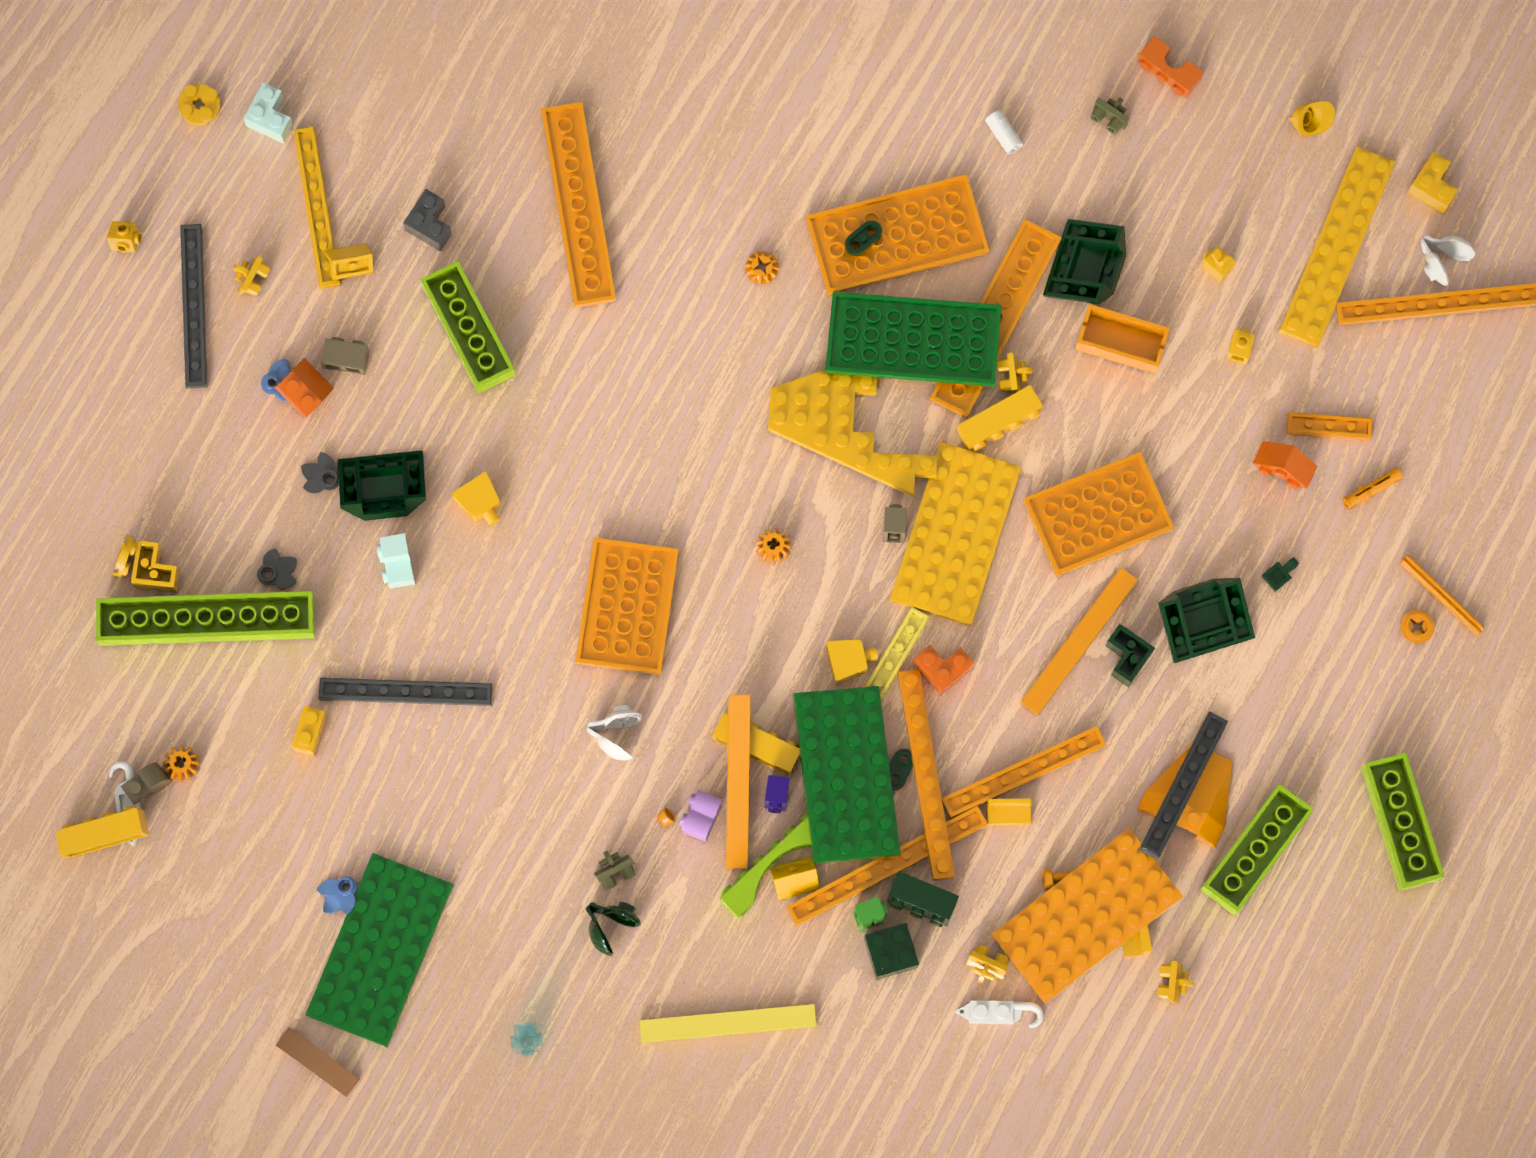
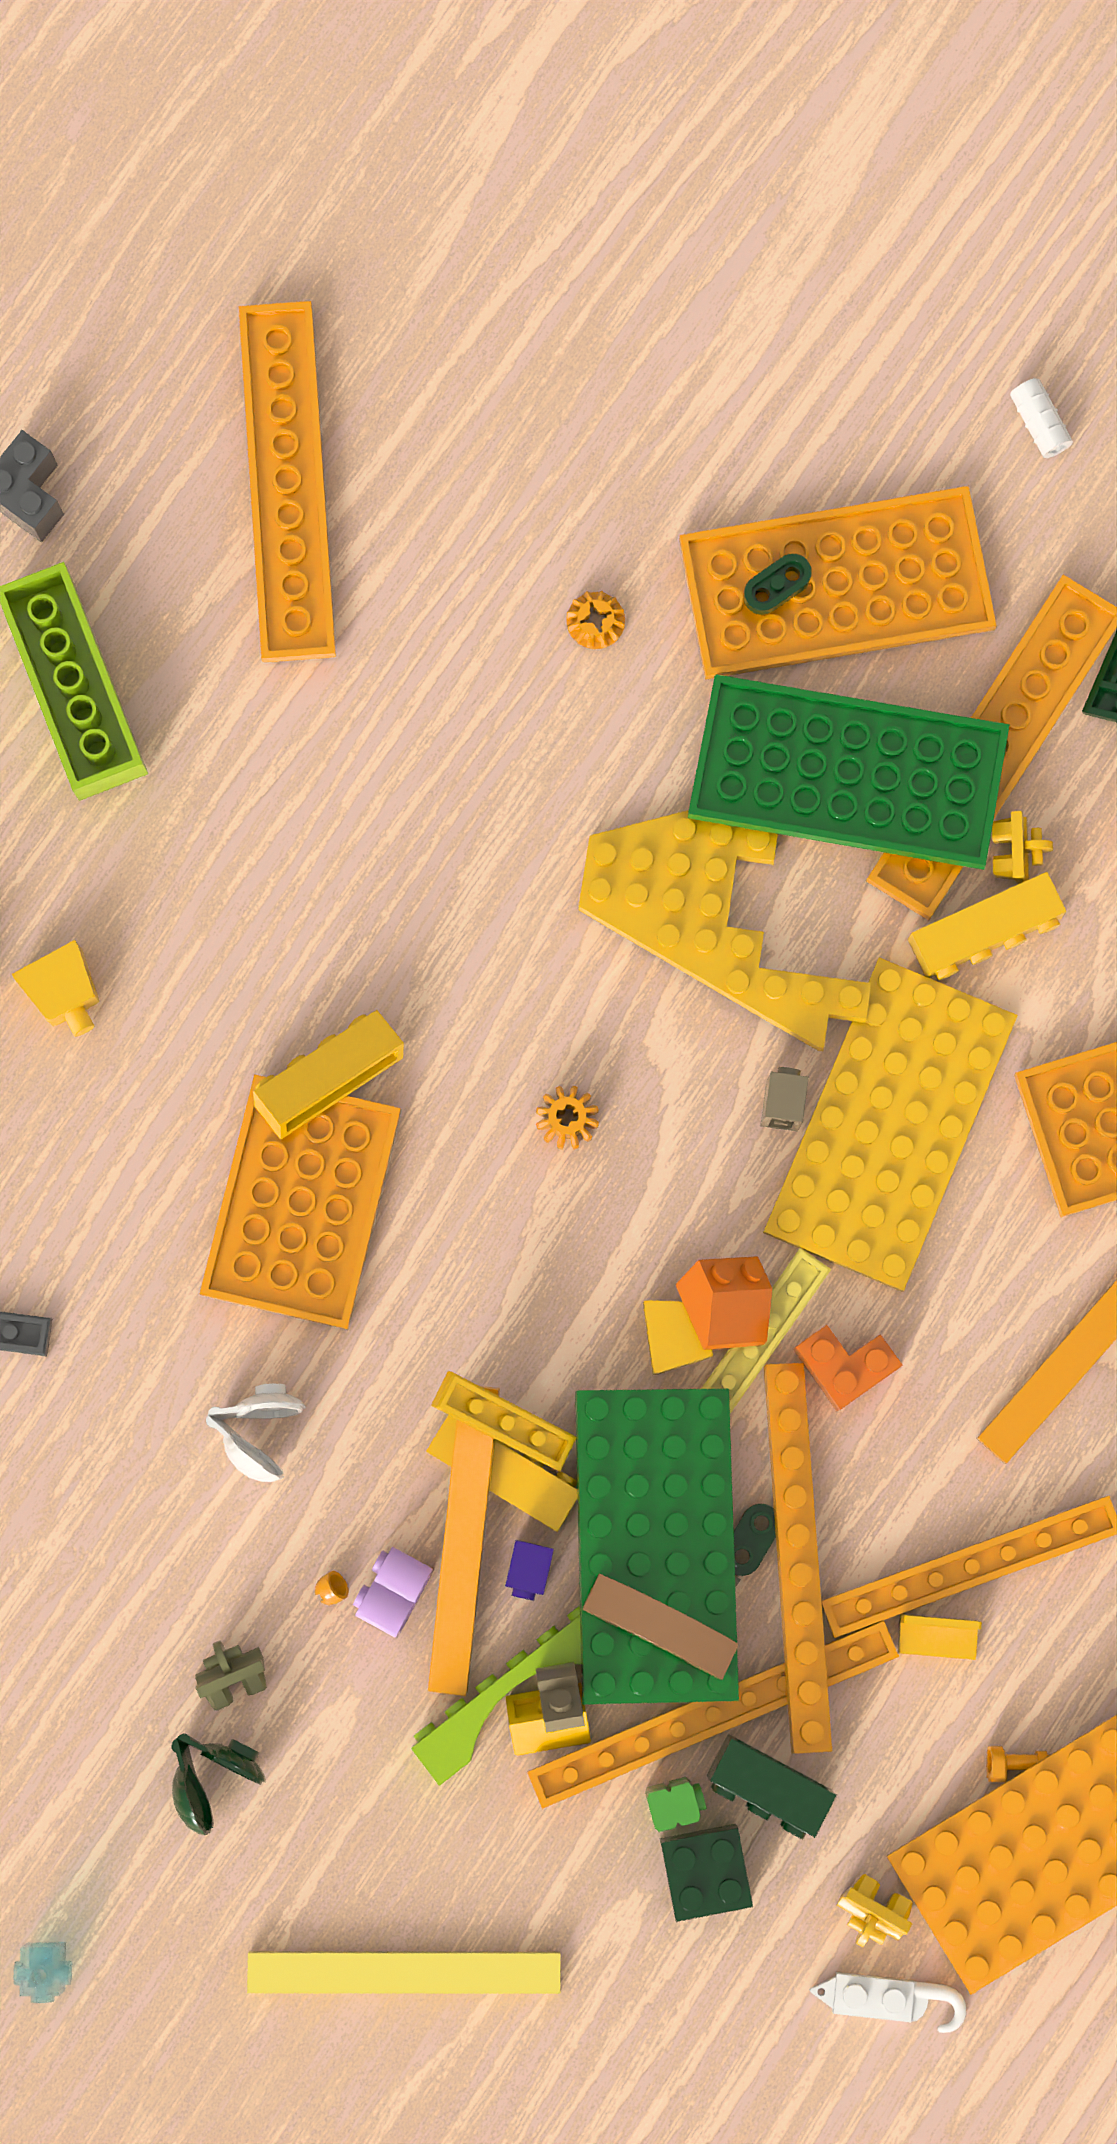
camera: 10 degrees right, 5 degrees up
(636, 532) = (327, 1073): none -> yellow brick
(755, 711) = (503, 1421): none -> yellow tile
(800, 858) = (560, 1697): none -> dark tan brick
(853, 813) = (660, 1625): none -> medium nougat slope
(873, 636) = (727, 1301): none -> orange slope

